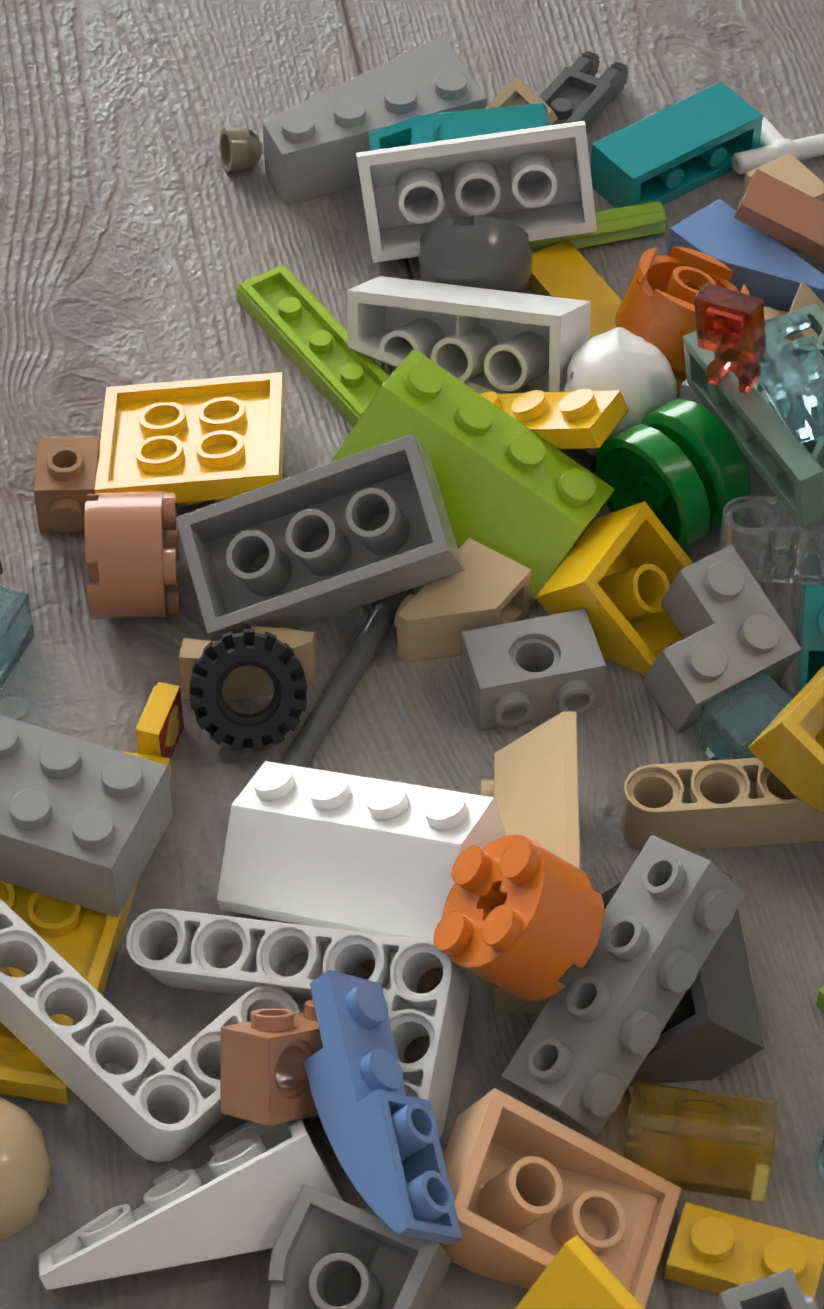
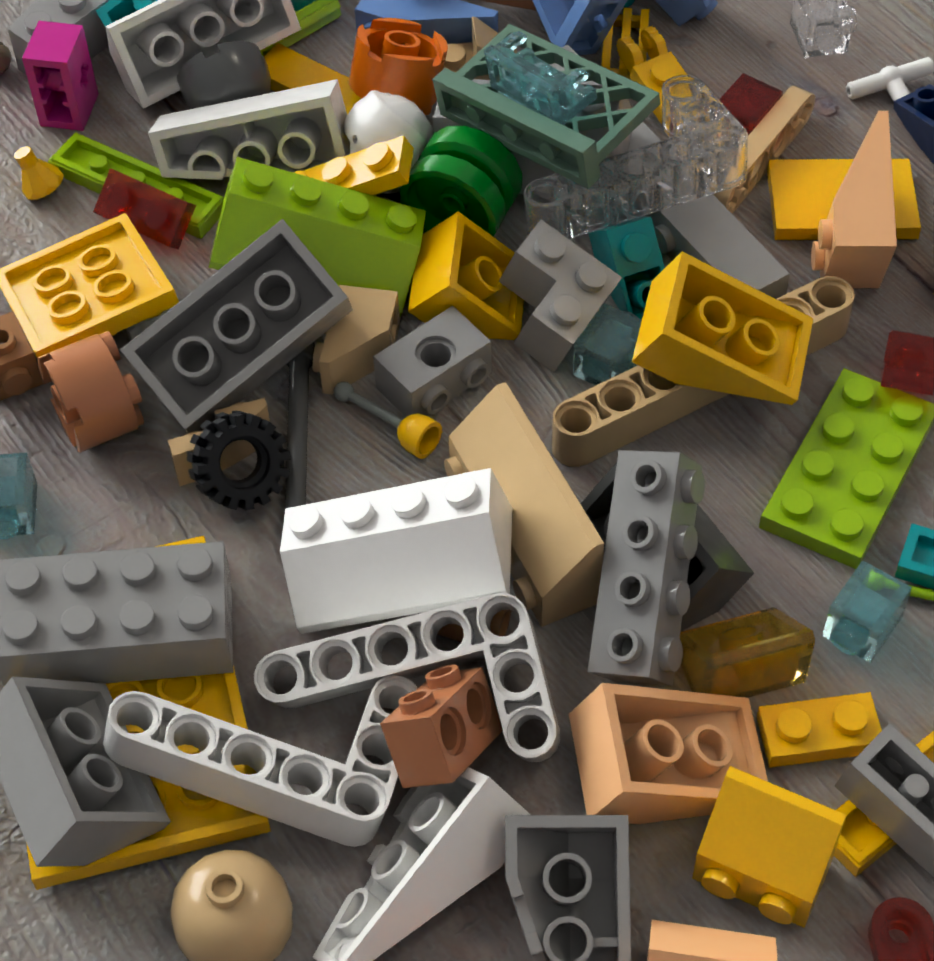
camera: 25 degrees left, 5 degrees up
(160, 722) = (180, 510): yellow tile -> none
(213, 298) = (37, 175): none -> yellow rock
(293, 193) = (60, 75): none -> dark pink brick
(311, 376) = (149, 208): none -> clear red plate
(376, 1130) = (540, 753): medium blue slope -> none
(470, 737) = (416, 432): none -> yellow hinge
(519, 917) = (557, 548): orange brick -> none
(734, 330) = (484, 60): clear red plate -> none

